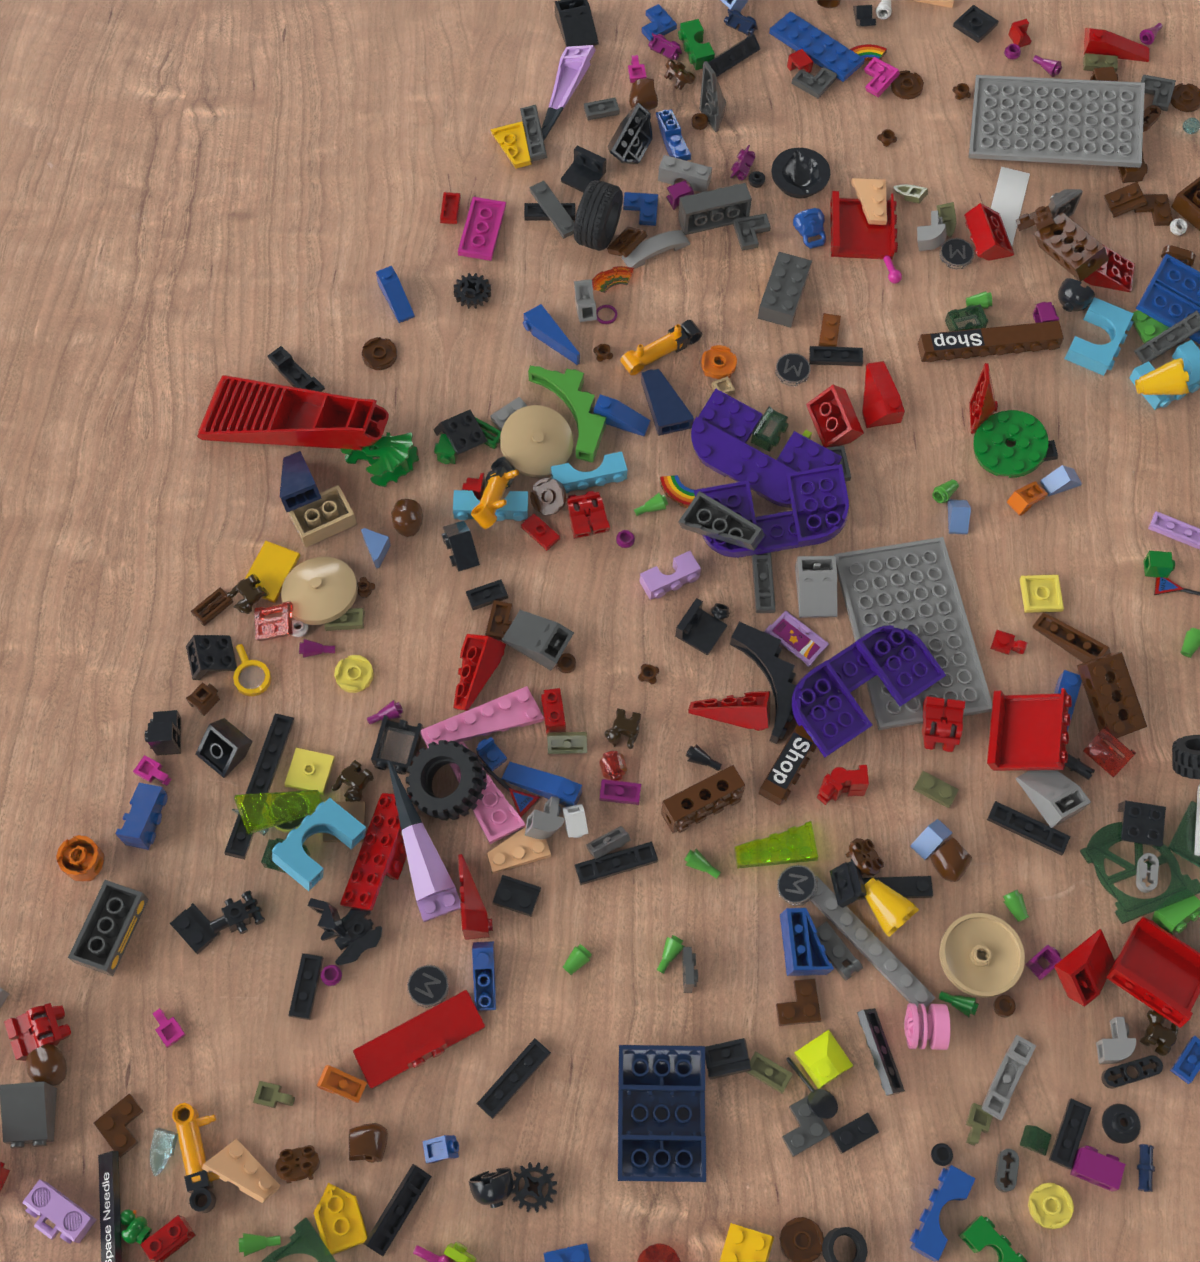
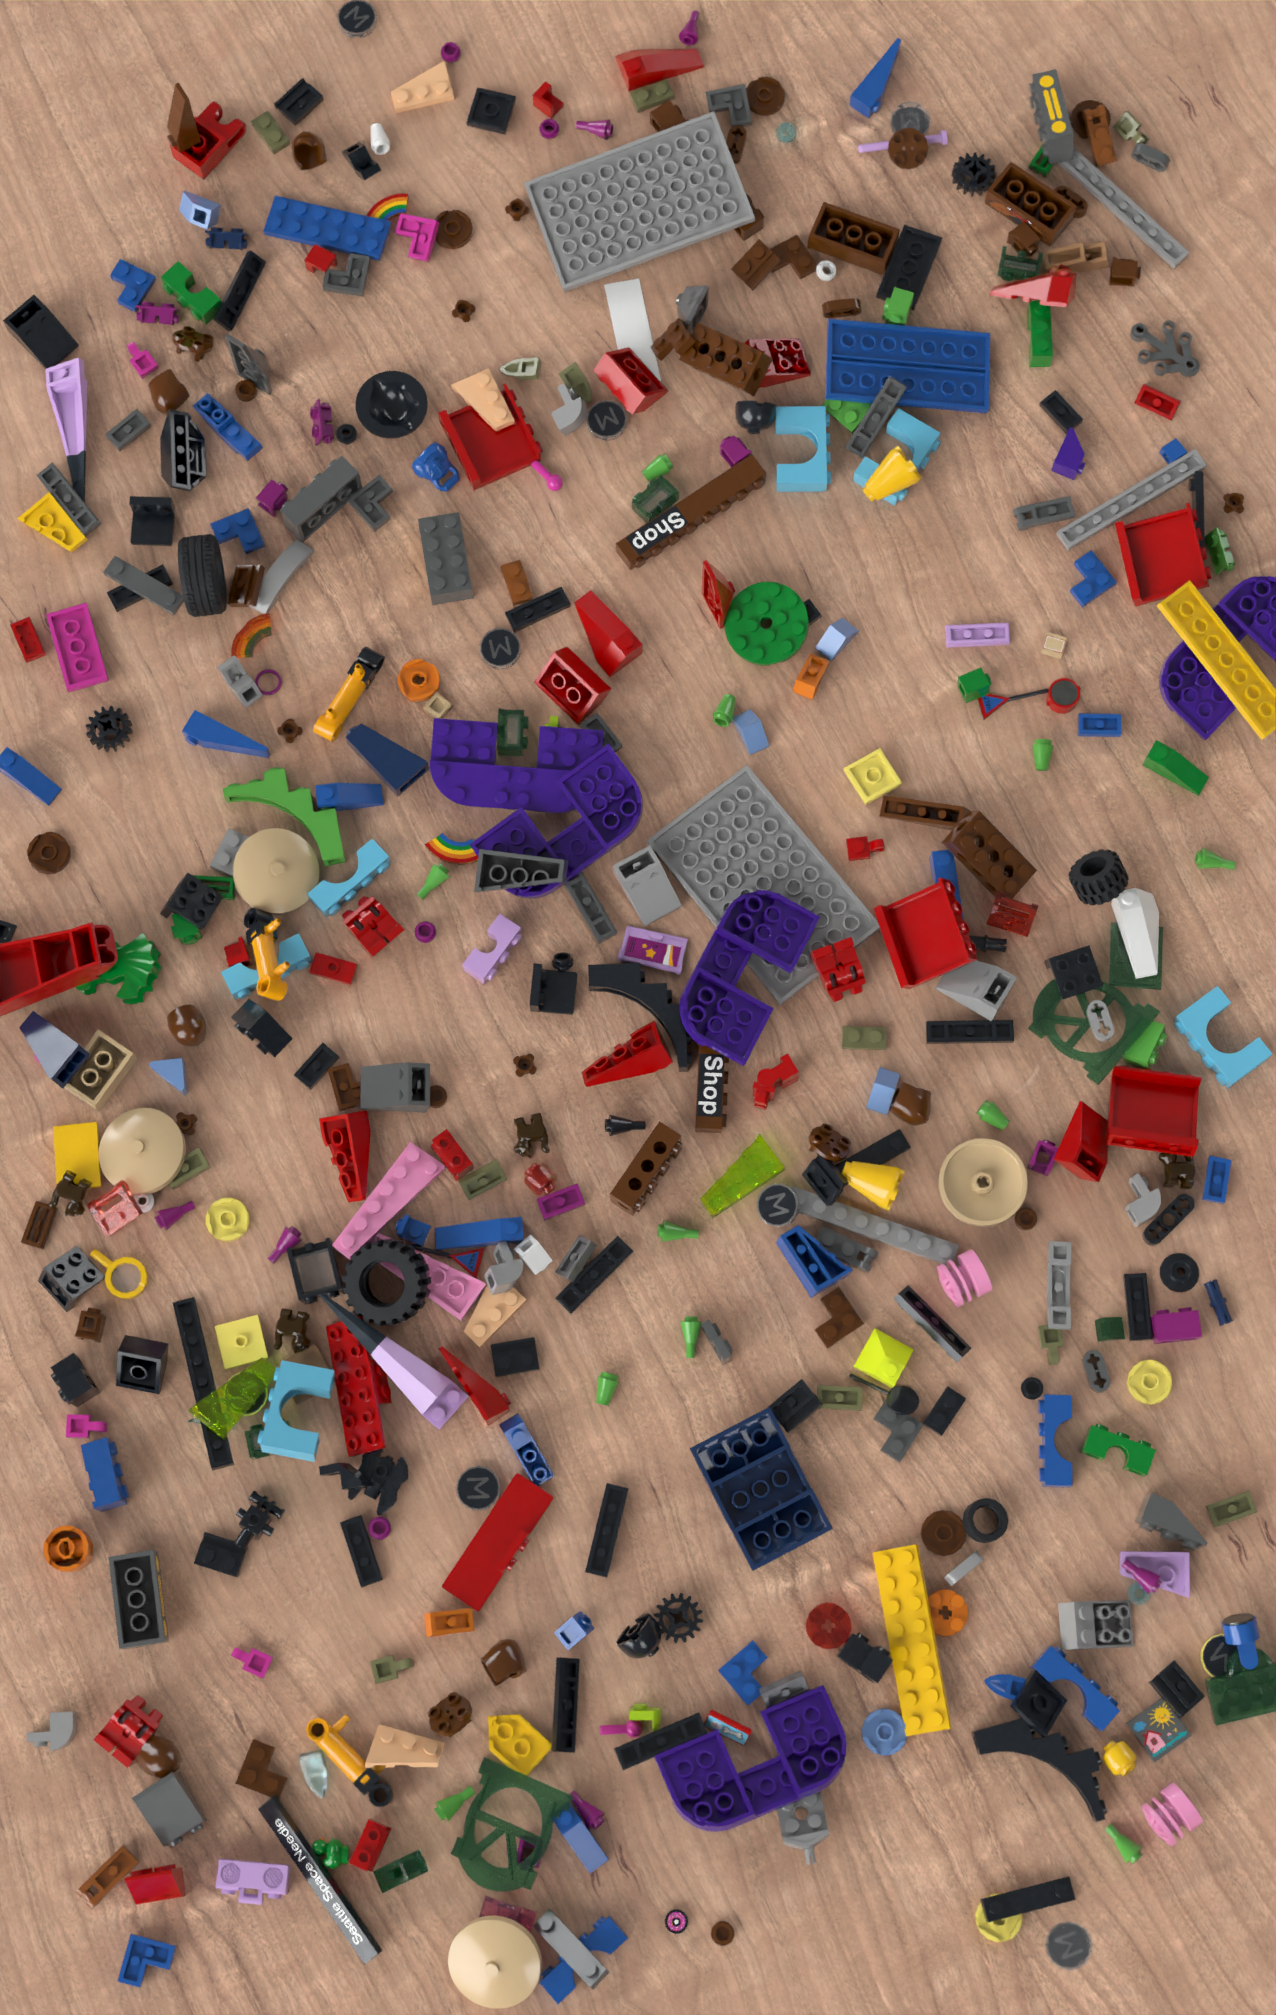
camera: 25 degrees left, 10 degrees up
(548, 496) = (321, 927): tile -> none
(696, 174) = (278, 465): light grey arch -> none
(964, 1004) = (989, 1237): green cone -> none

